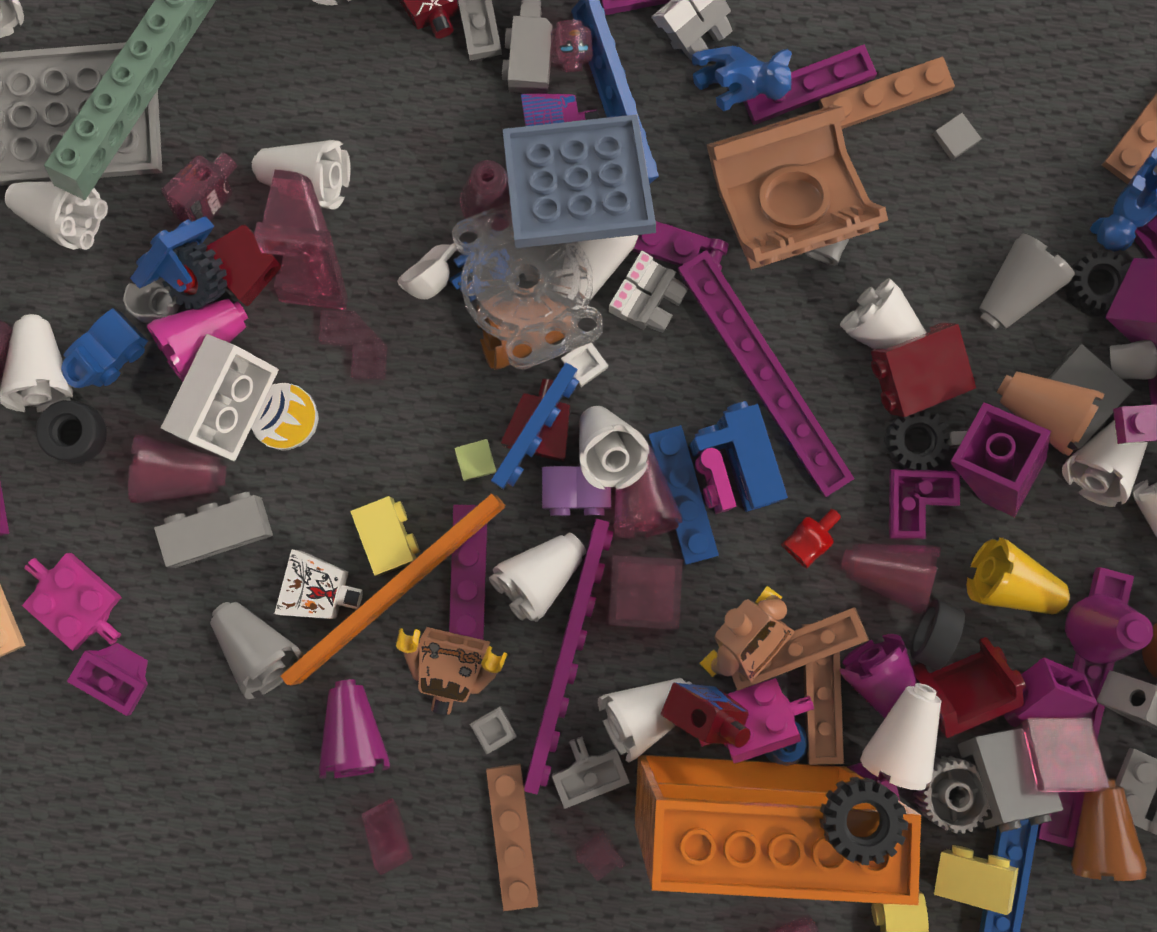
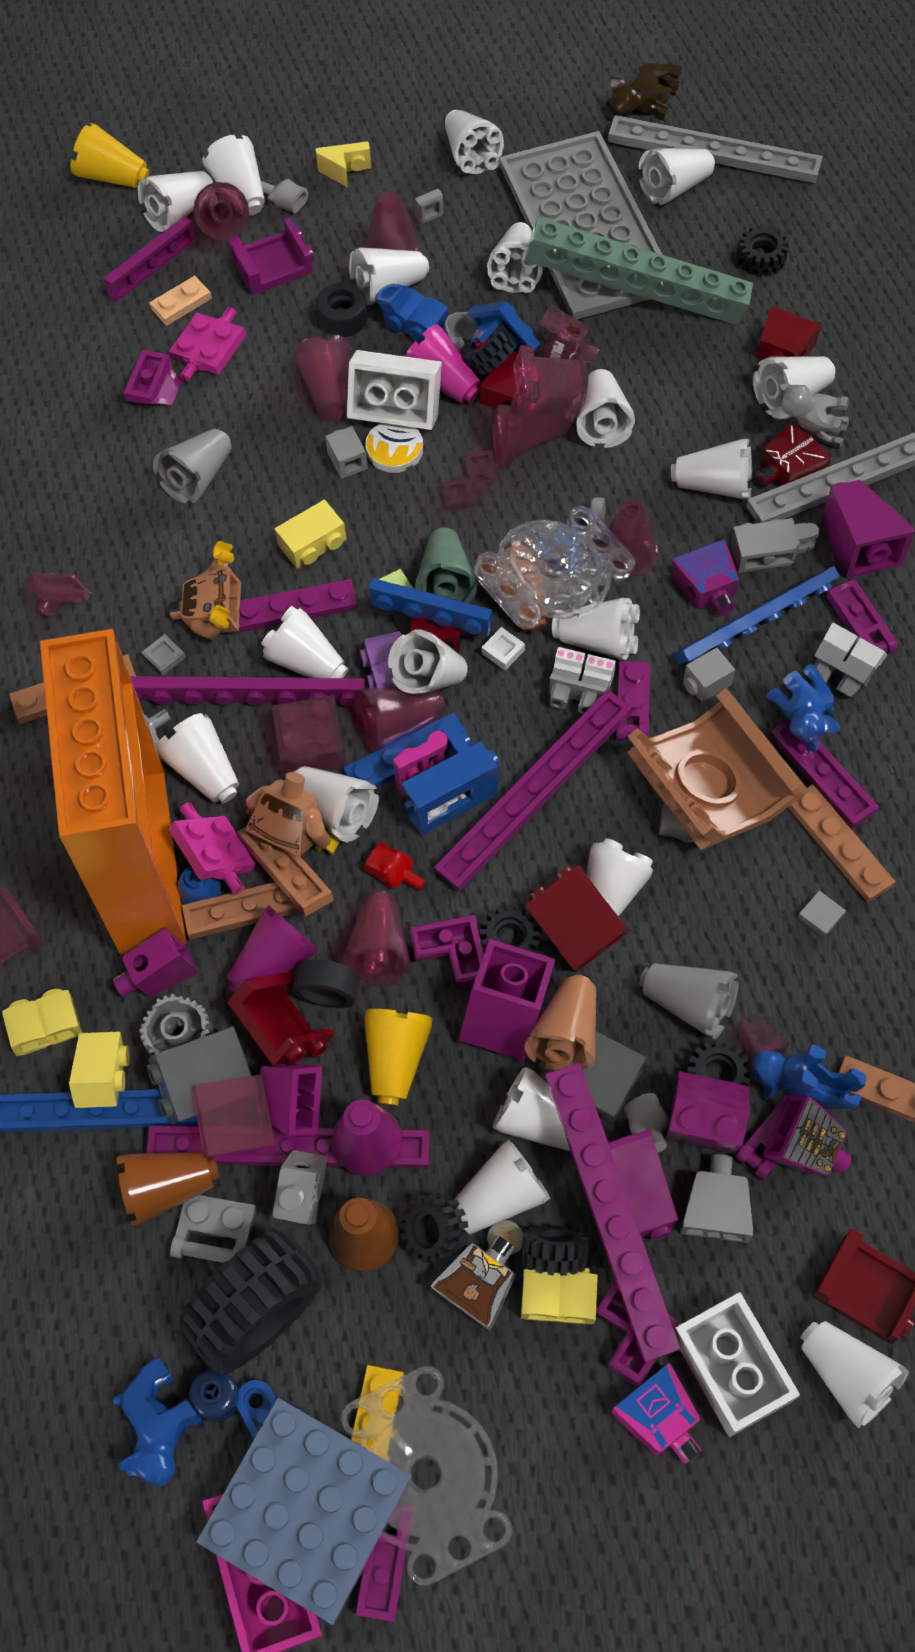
camera: 80 degrees right, 20 degrees down
(213, 530) = (286, 418): light grey brick -> none
(280, 472) = (346, 452): none -> light grey brick
(315, 588) = (255, 495): white torso -> none
(350, 734) = (137, 545): magenta cone -> none
(393, 590) = (268, 547): orange tile -> none
(425, 74) = (716, 470): none -> white cone
(429, 274) = (536, 508): white cap -> none
(440, 217) = (599, 507): none -> light grey tile
(473, 399) = (446, 568): none -> sand green cone
(571, 45) = (784, 570): clear pink head -> none
(578, 181) = (655, 584): sand blue plate -> none
(674, 162) = (708, 675): none -> light grey brick
(718, 722) = (208, 789): dark red torso -> none
(726, 583) = (343, 801): none -> white cone
(890, 824) = (113, 752): black tyre -> none
(906, 739) = (215, 961): white cone -> none
(1075, 233) = (760, 1037): none -> clear pink panel

